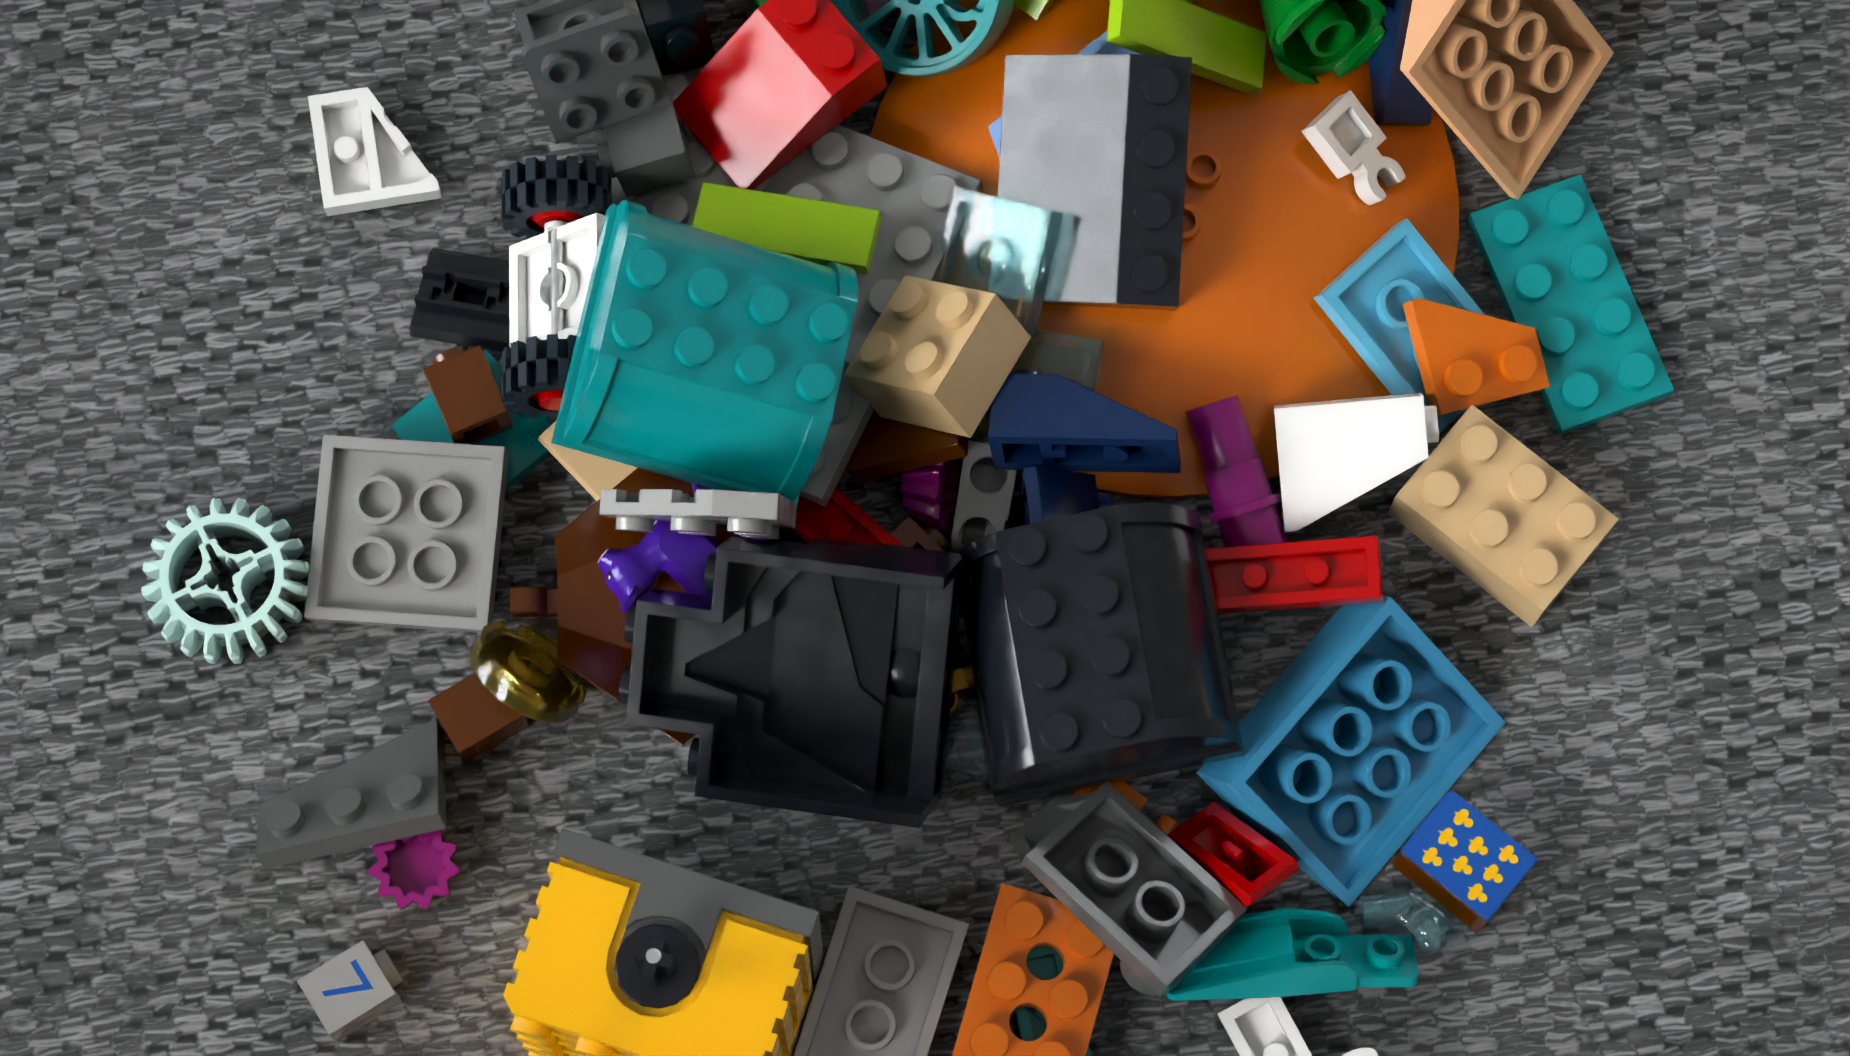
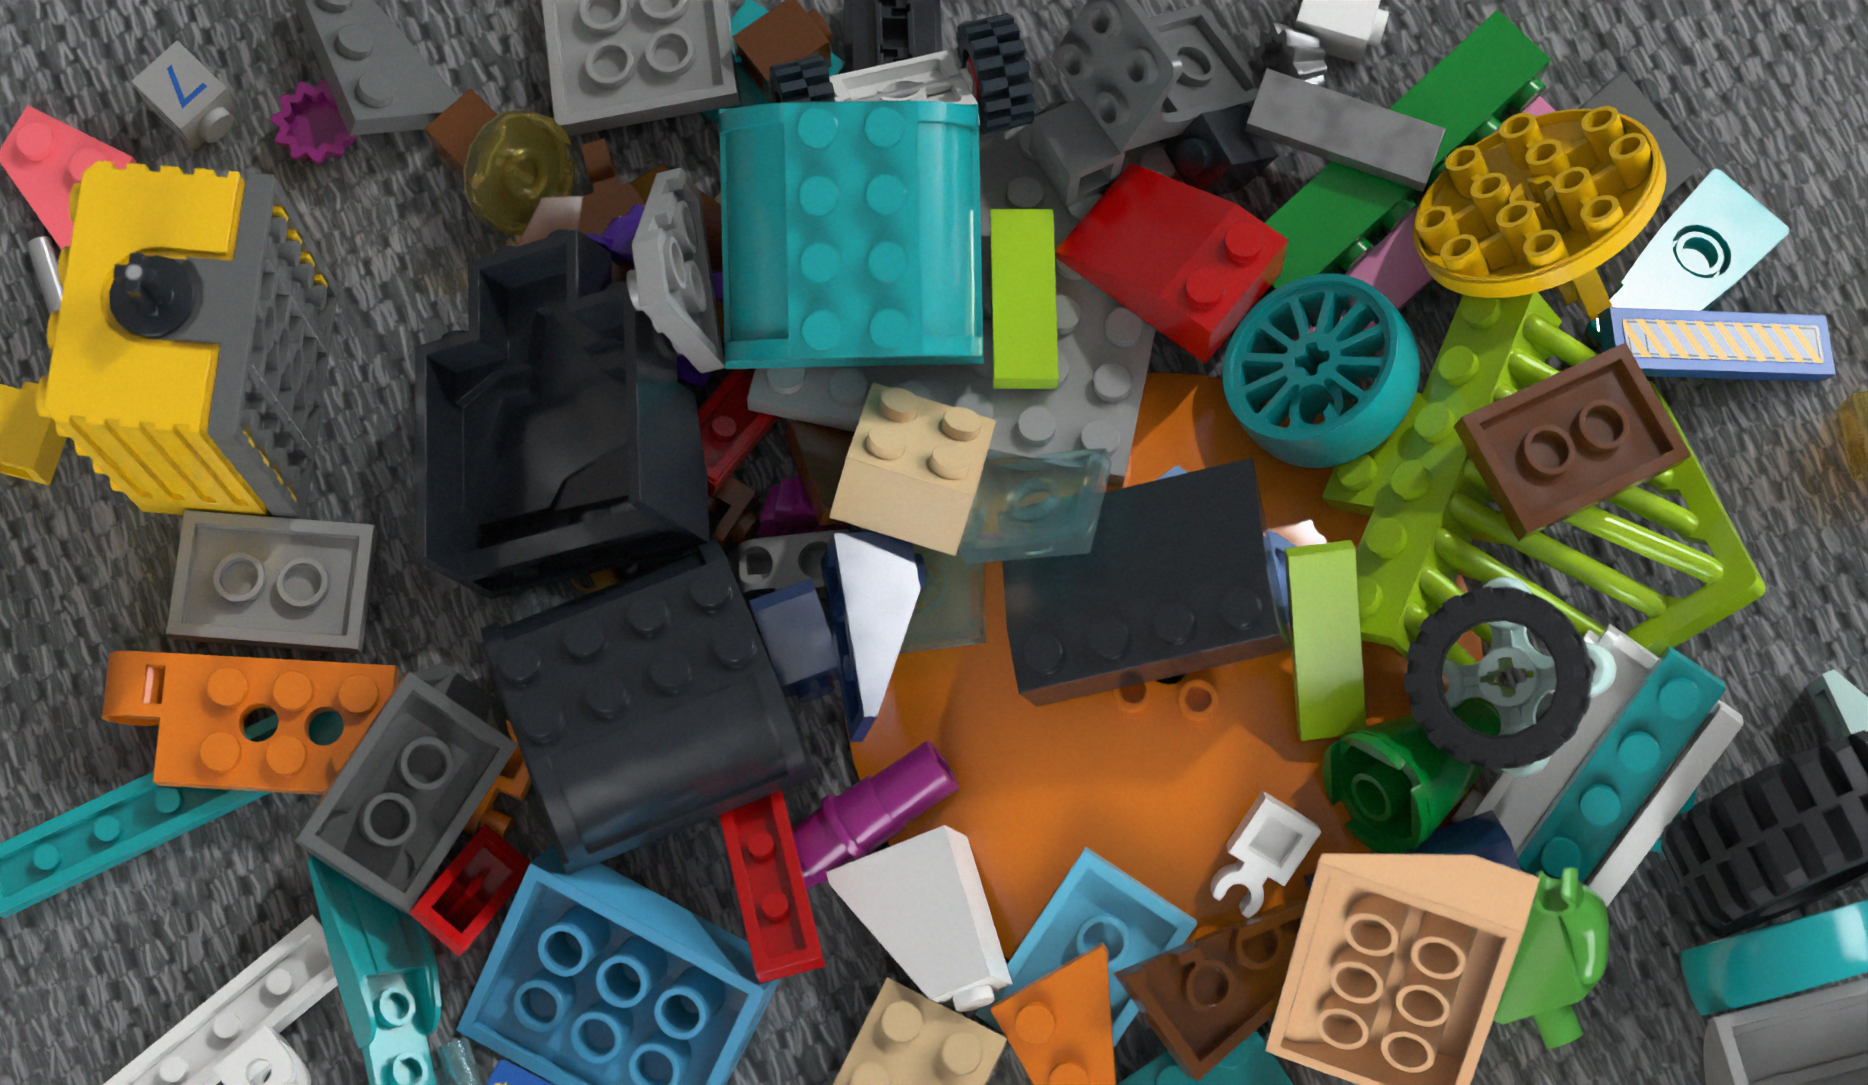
camera: 80 degrees right, 0 degrees up
(1459, 209) = (1216, 987): none -> reddish brown wing

